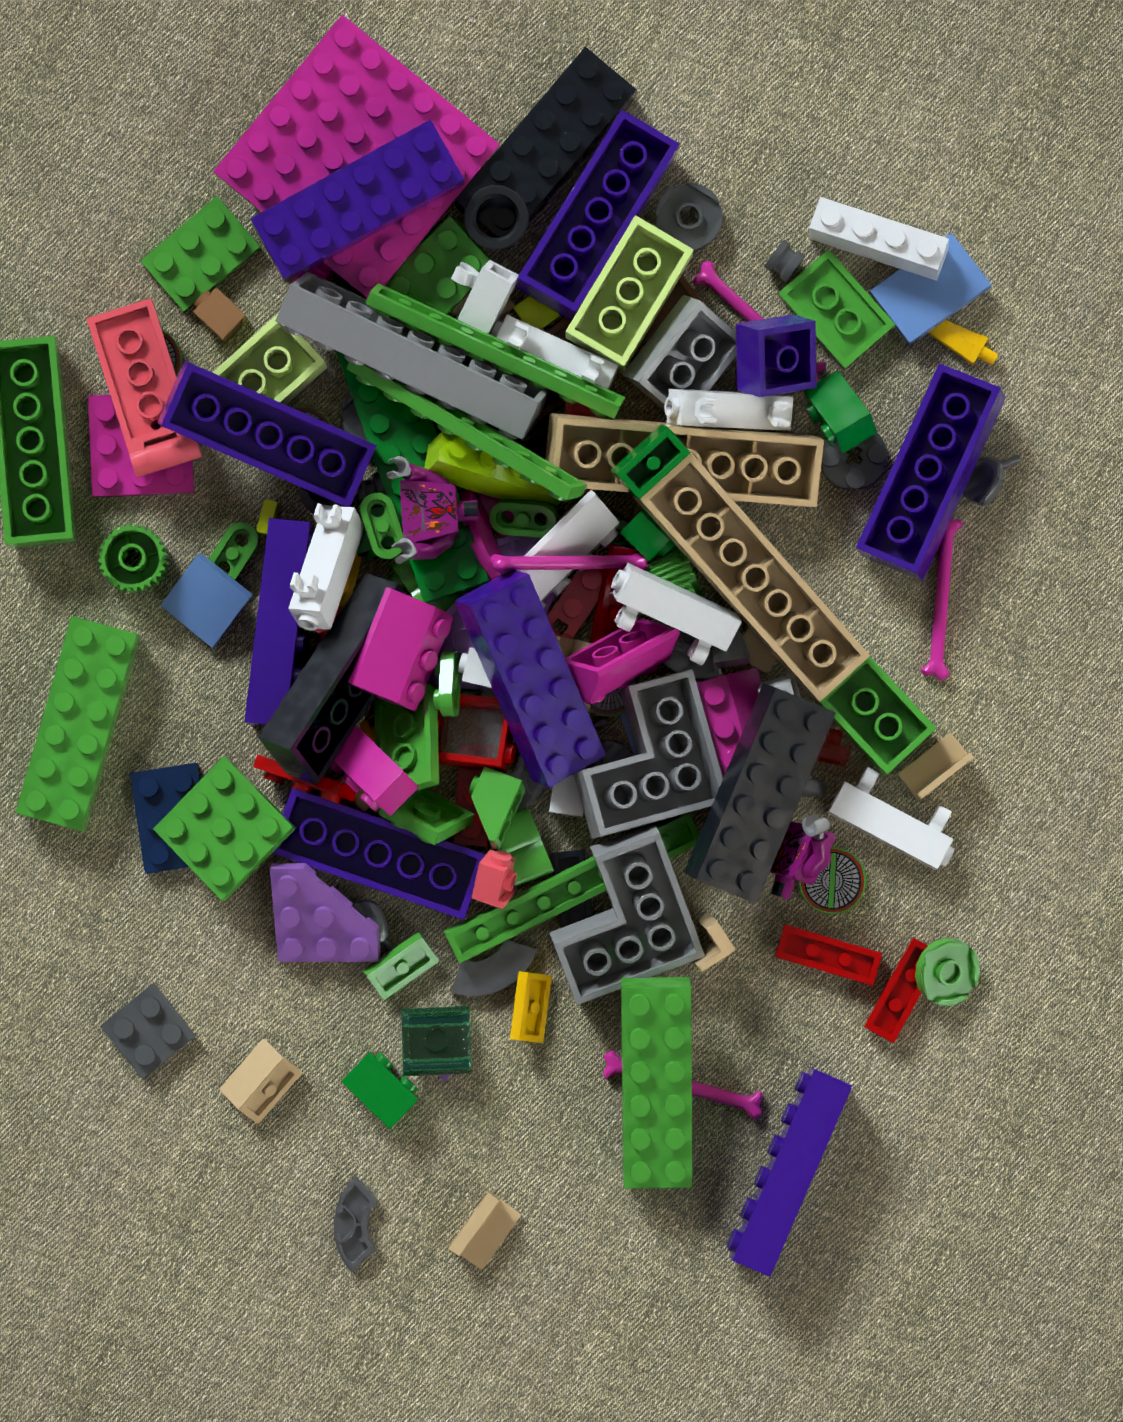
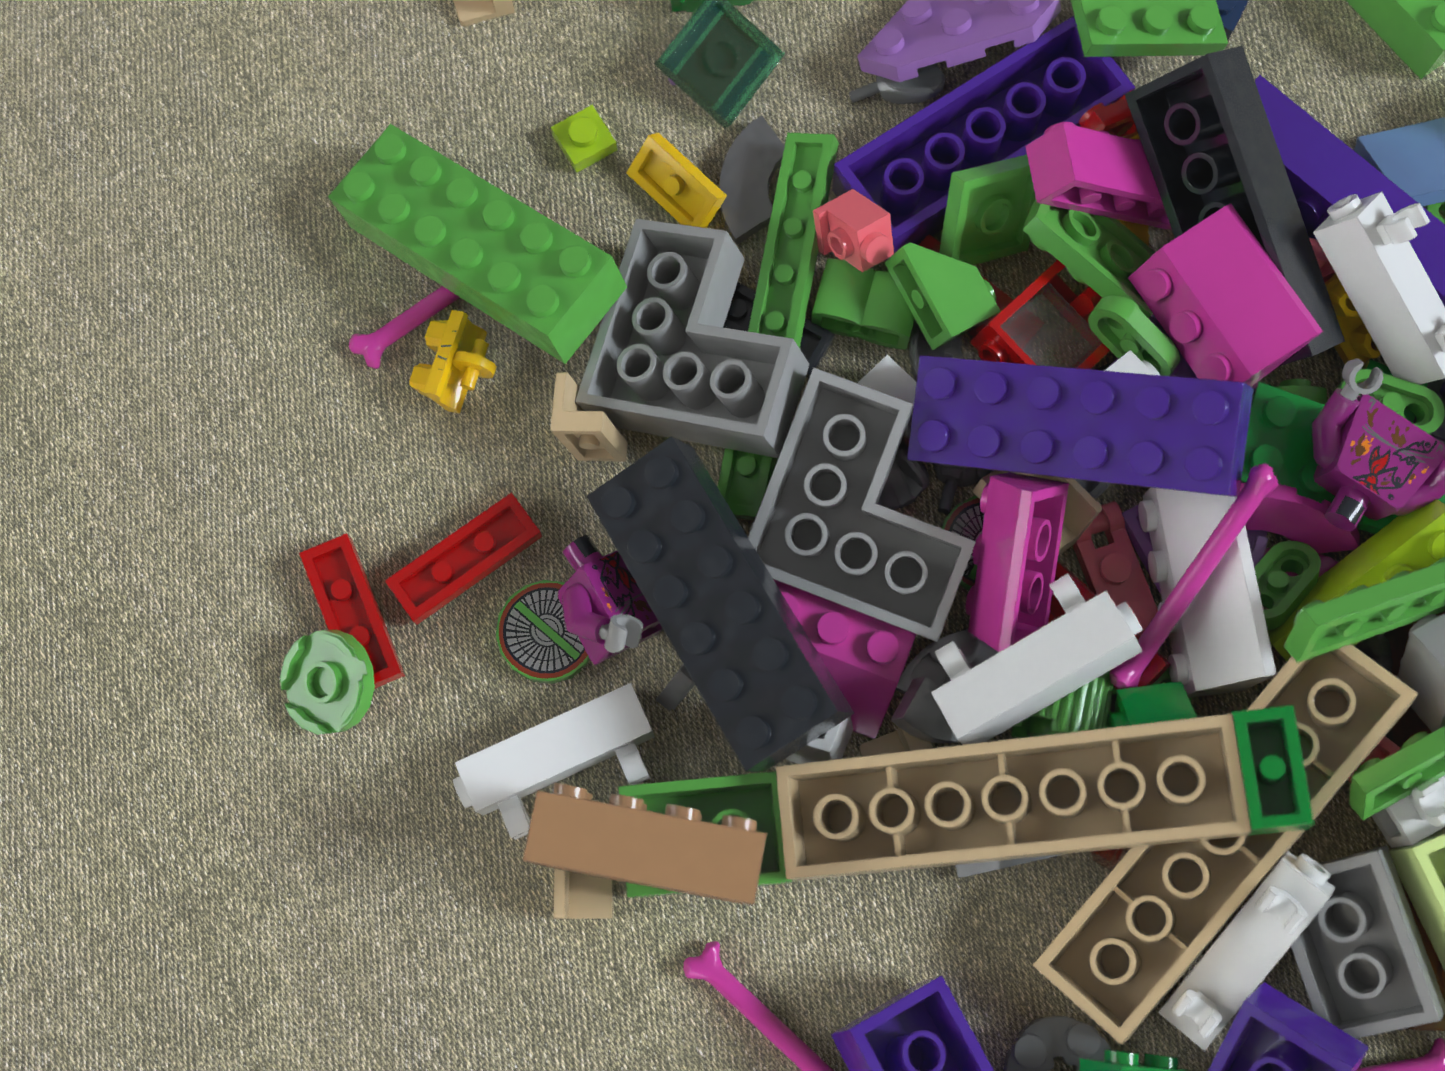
camera: 135 degrees right, 10 degrees down
(401, 966) = (833, 82): bright green plate -> none
(539, 1084) = (584, 138): none -> lime plate
(725, 1043) = (457, 363): none -> yellow hips
(789, 1171) = (256, 318): dark purple brick -> none
(832, 751) = (703, 749): clear red tile -> none
(909, 731) = (644, 846): none -> medium nougat brick

